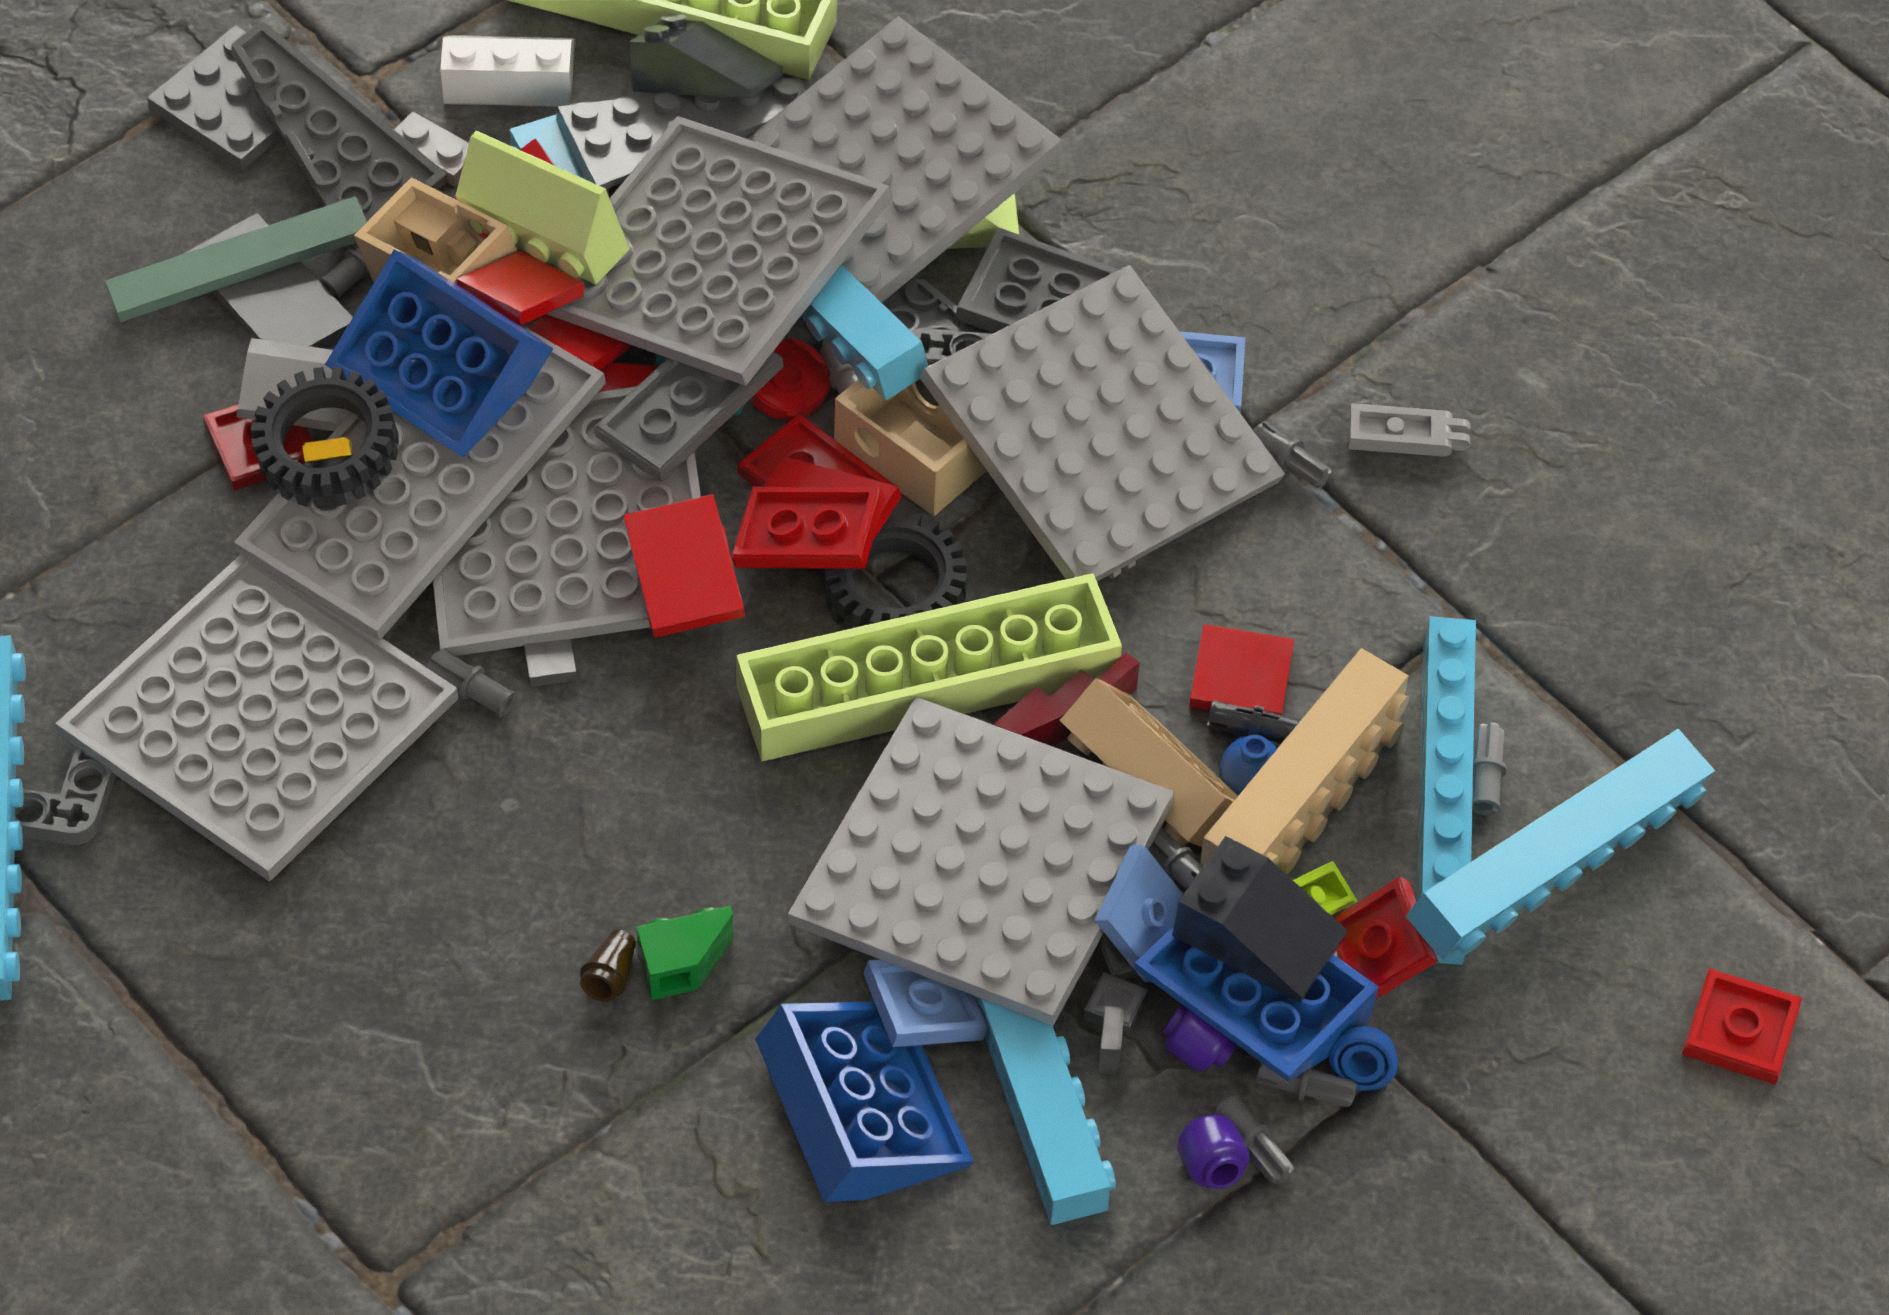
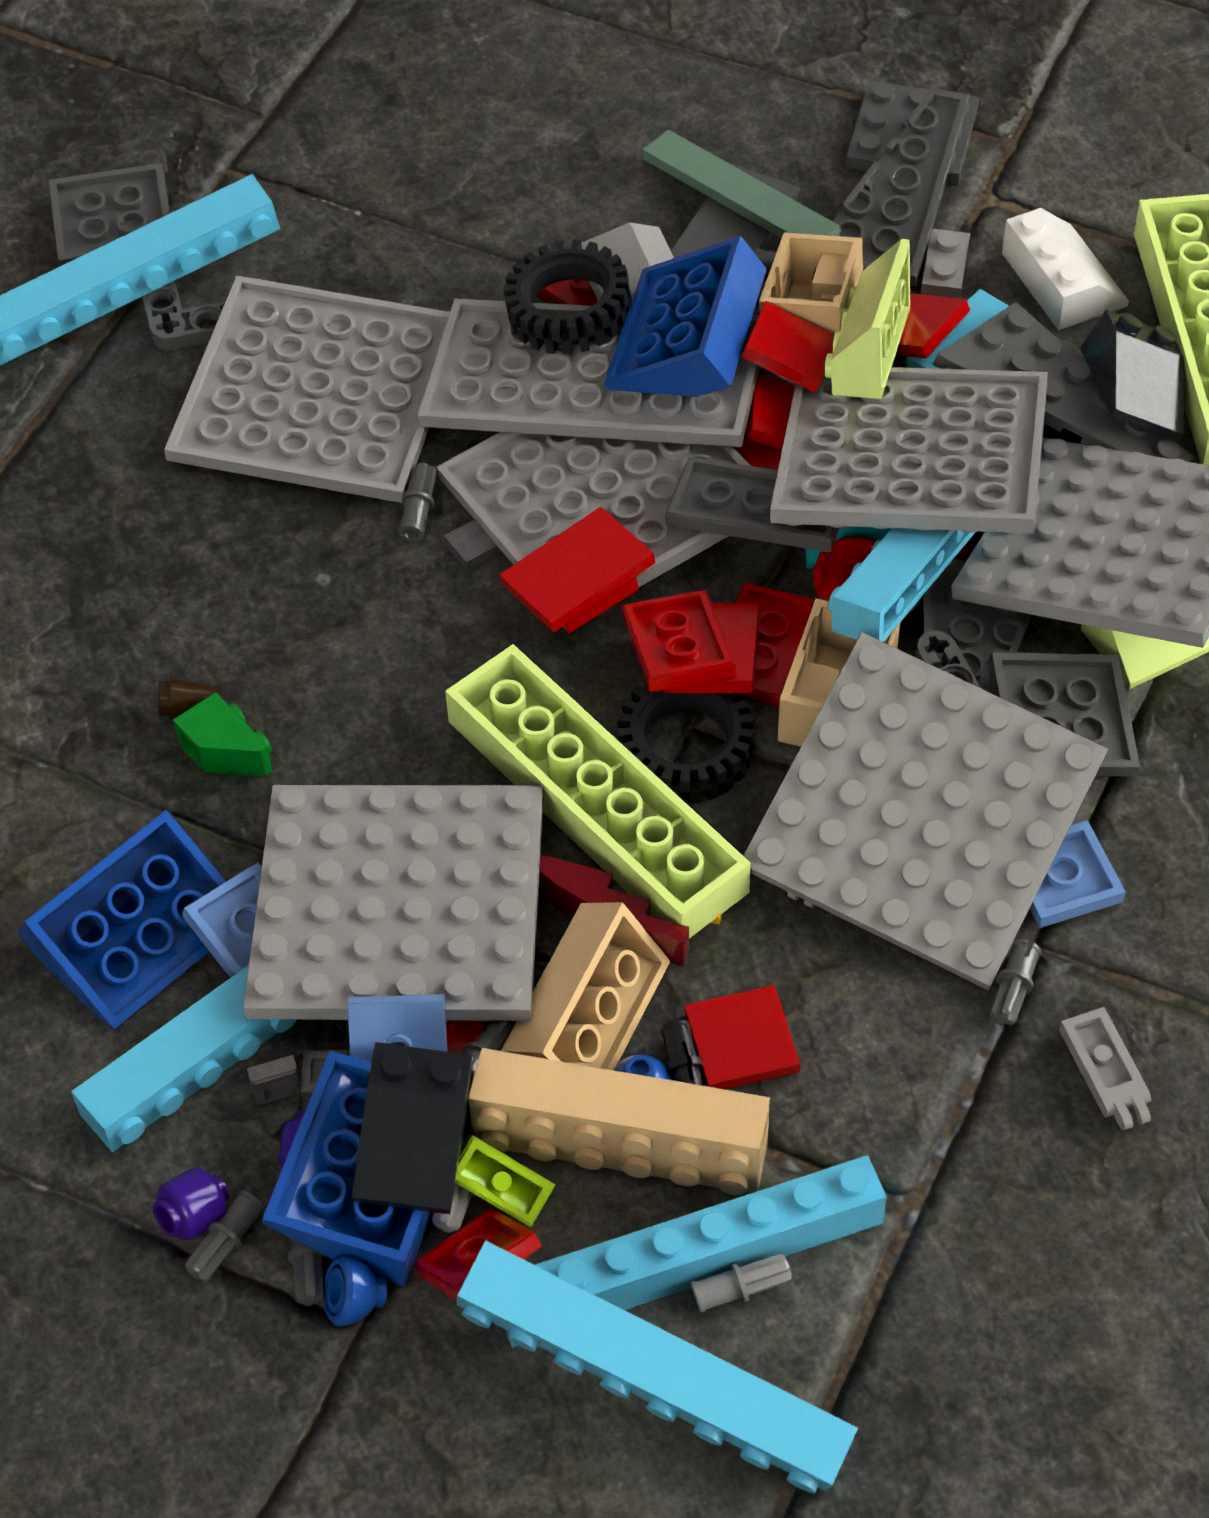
camera: 70 degrees right, 0 degrees up
(328, 449) = (551, 299): yellow tile -> none

